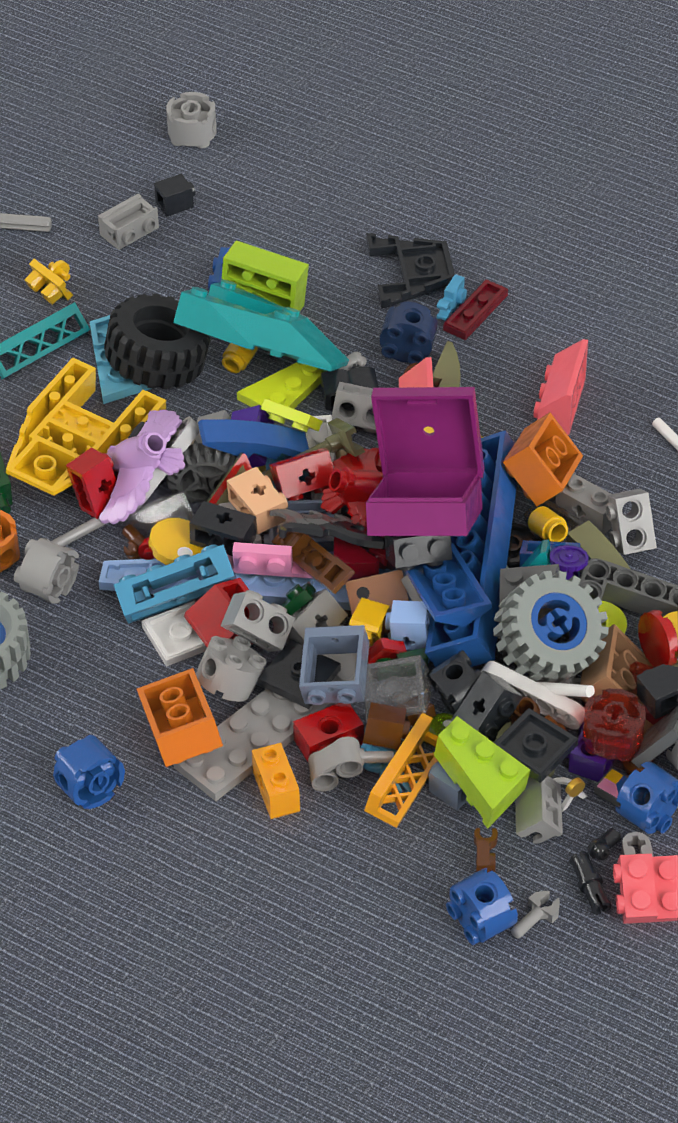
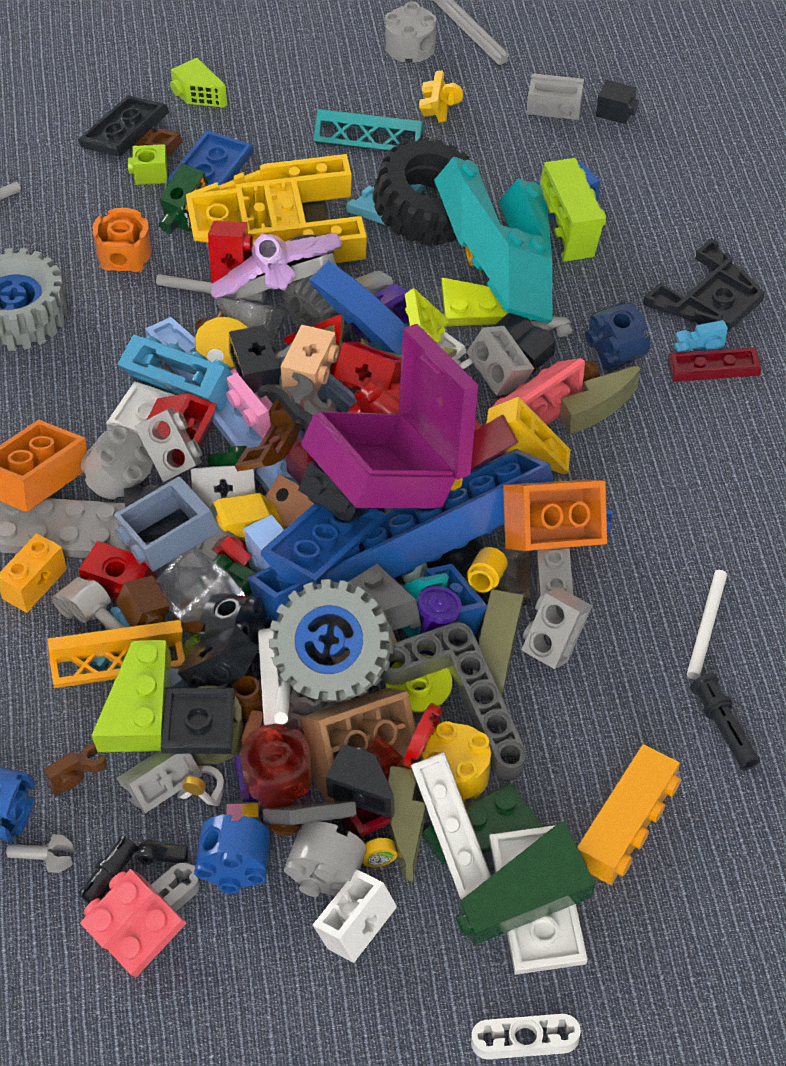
camera: 50 degrees right, 5 degrees up
(47, 570) = (120, 289): light grey brick -> none
(191, 120) = (708, 56): light grey brick -> none
(563, 385) = (674, 482): coral slope -> none

